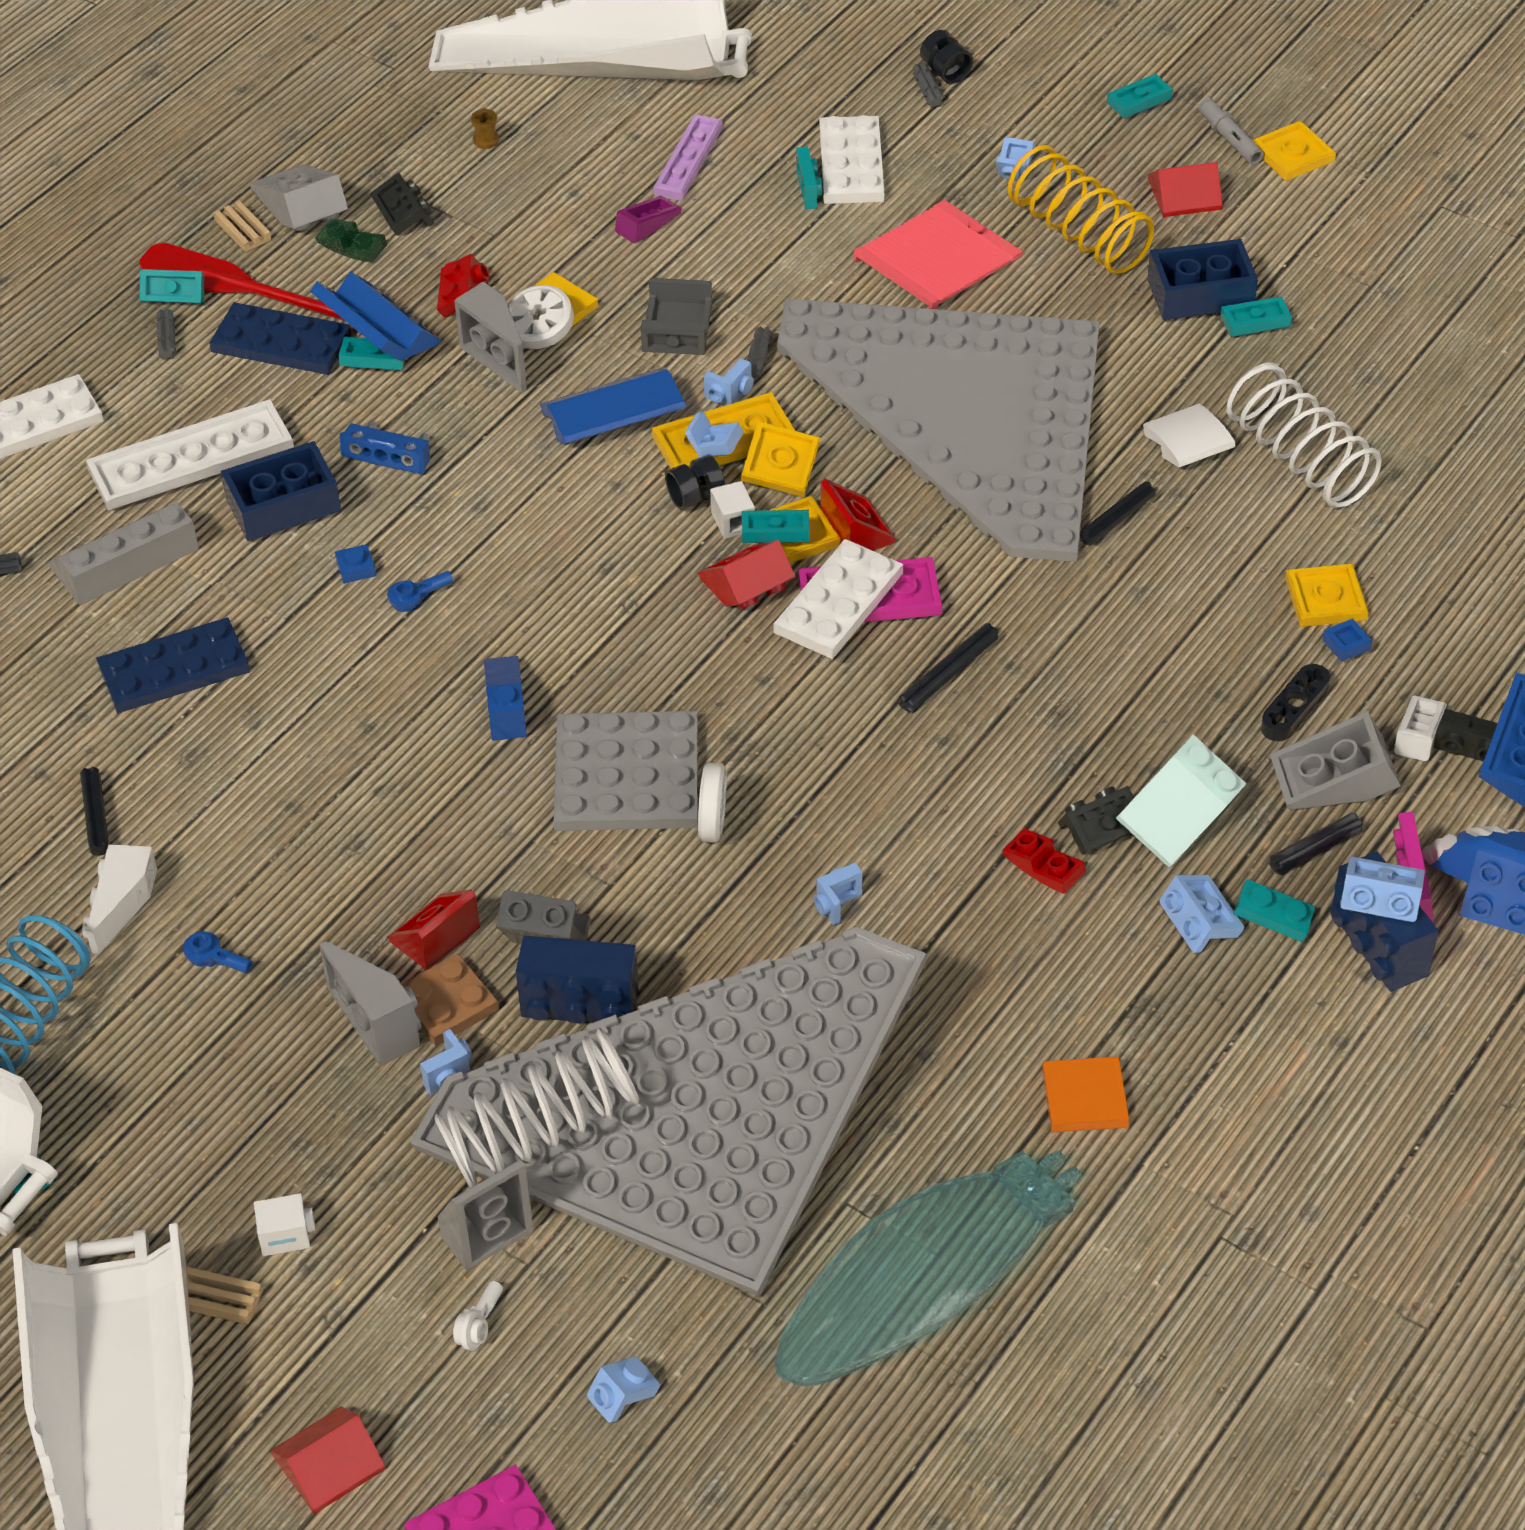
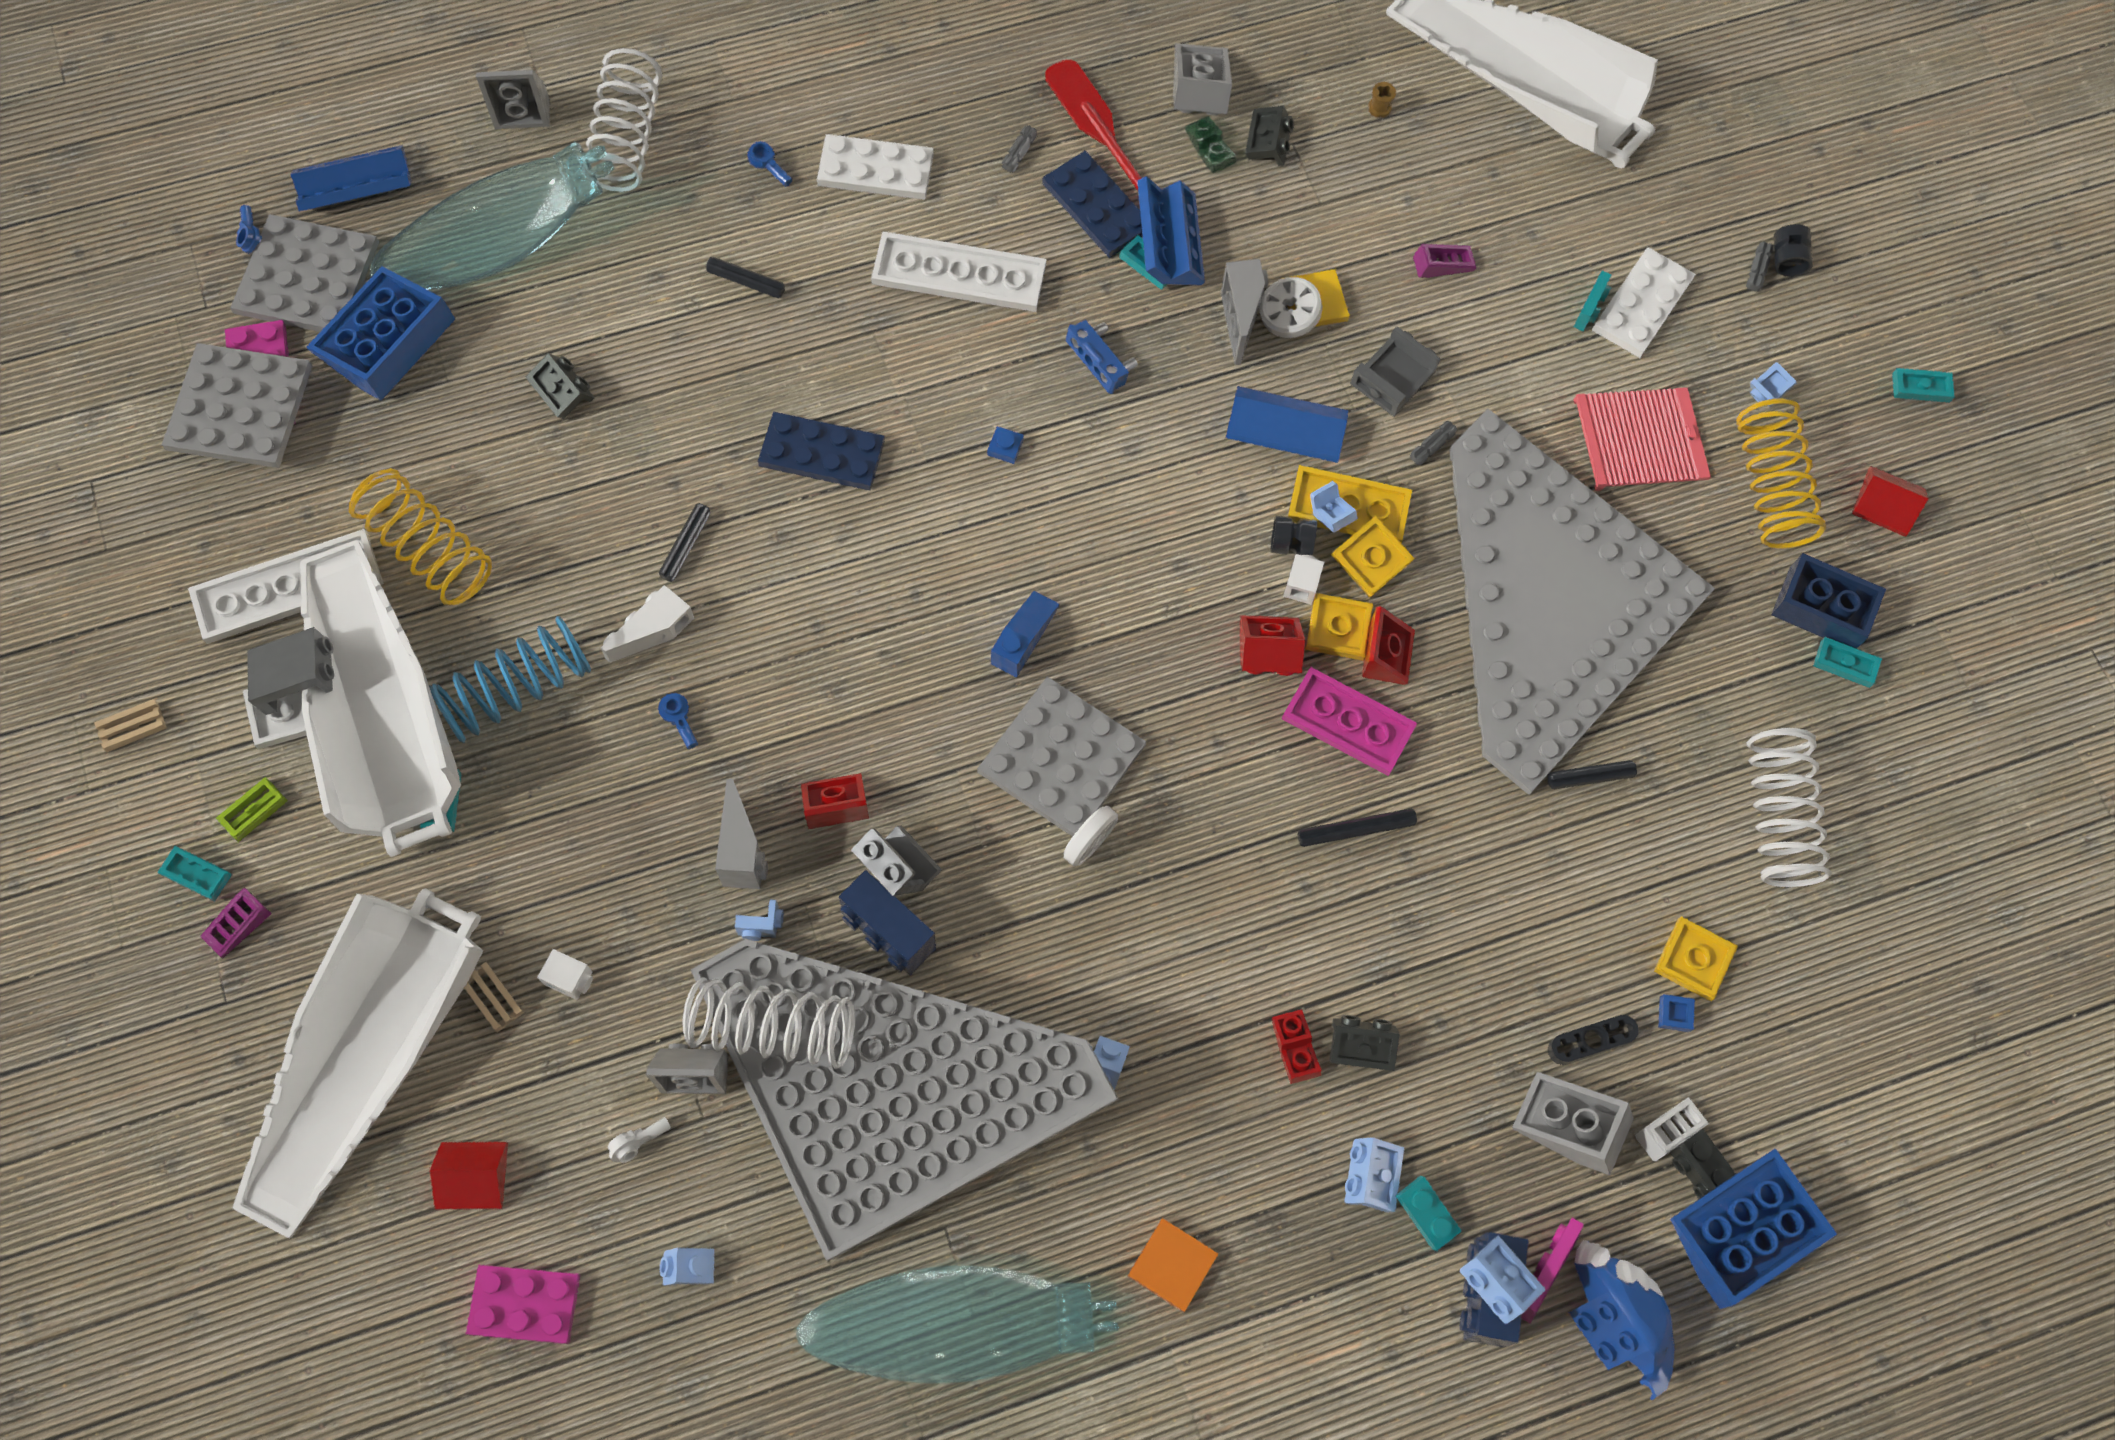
camera: 30 degrees right, 20 degrees up
(126, 553) = (854, 330): light grey slope -> none
(171, 286) = (1051, 108): teal plate -> none
(247, 224) = (1142, 63): tan tile -> none
(281, 491) = (993, 349): dark blue brick -> none
(408, 595) = (1020, 497): blue plate -> none
(450, 998) = (801, 865): medium nougat plate -> none
(458, 278) = (1259, 239): red bracket -> none
(688, 157) = (1518, 221): lavender tile -> none
(731, 386) = (1389, 464): light blue bracket -> none
(775, 524) = (1319, 618): teal plate -> none
(837, 888) = (1130, 965): light blue bracket -> none
(838, 598) = (1317, 715): white plate -> none
(1181, 800) = (1430, 1073): light aqua slope -> none
(1189, 435) = (1704, 740): white slope -> none
(1223, 123) = (1971, 466): light grey pin -> none
(1294, 150) = (2010, 517): yellow tile -> none
(1315, 843) = (1508, 1175): black axle -> none

